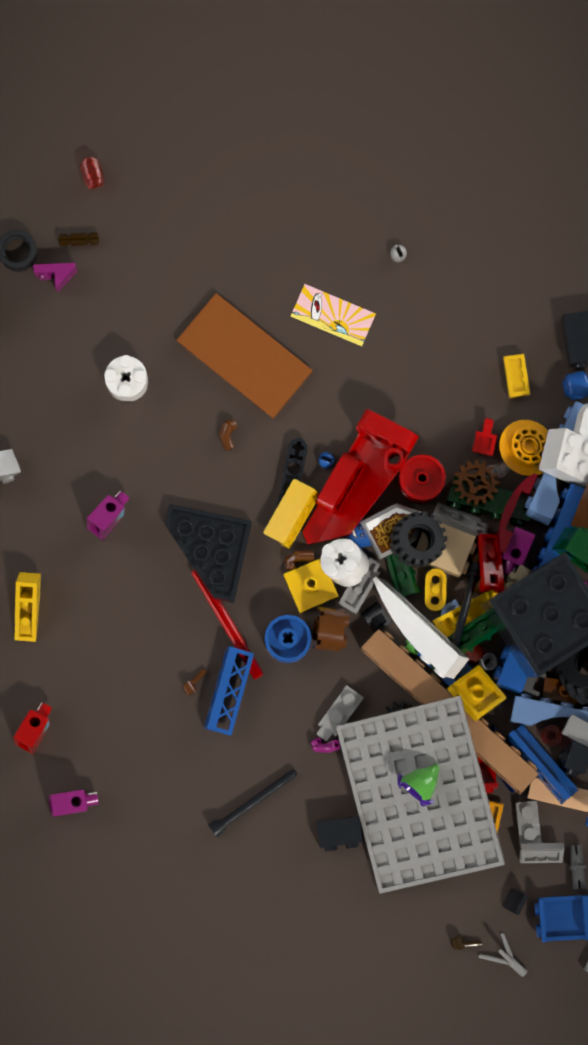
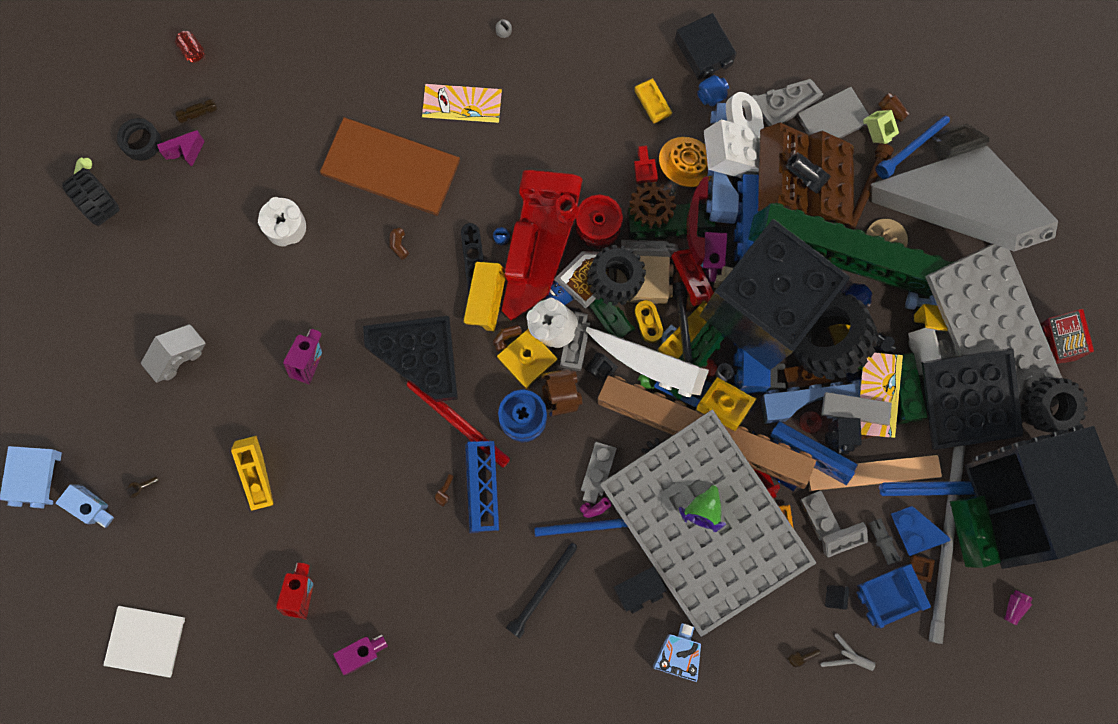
camera: 20 degrees left, 5 degrees down
(304, 758) = (579, 527): none -> blue bar
(354, 902) = (679, 654): none -> torso

